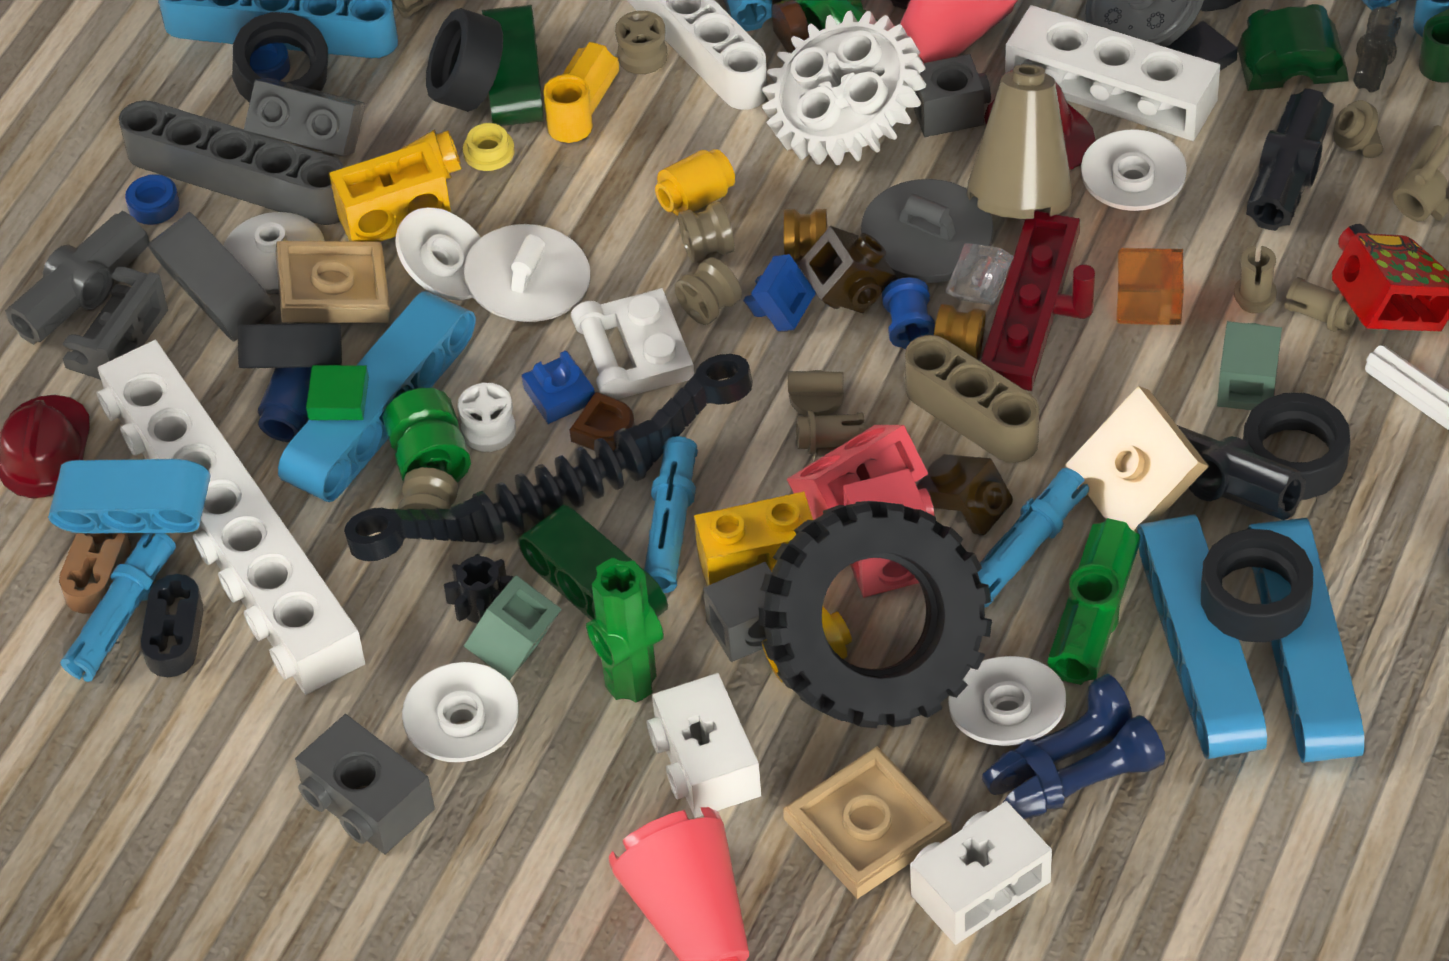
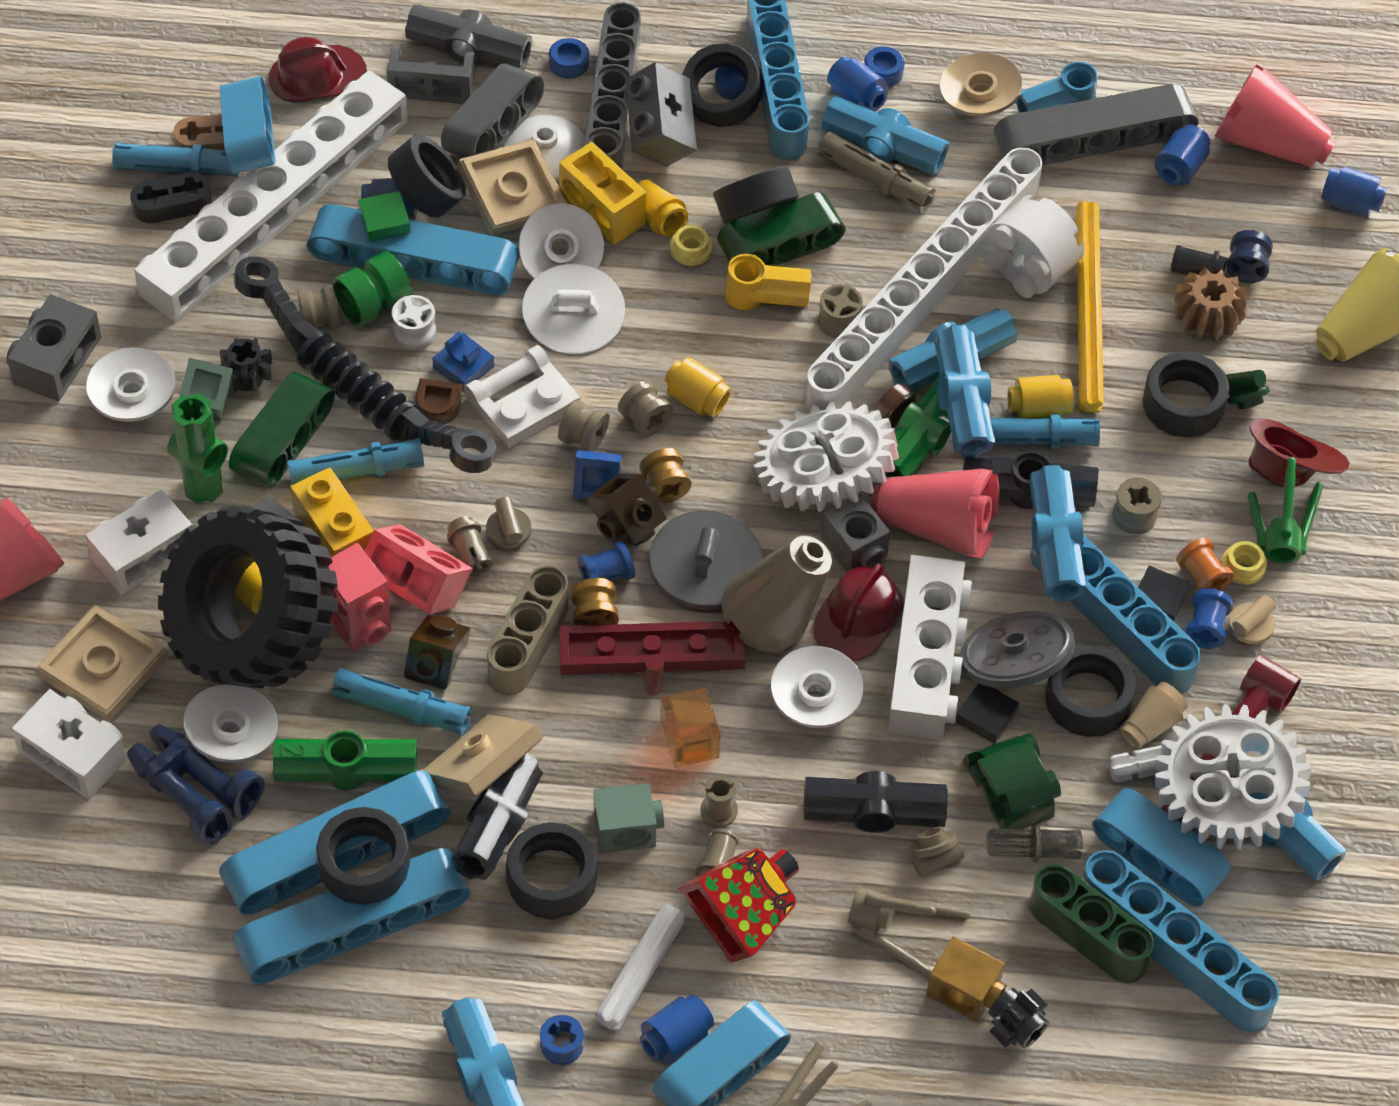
camera: 65 degrees right, 5 degrees up
(979, 274) = (658, 603): clear plate -> none

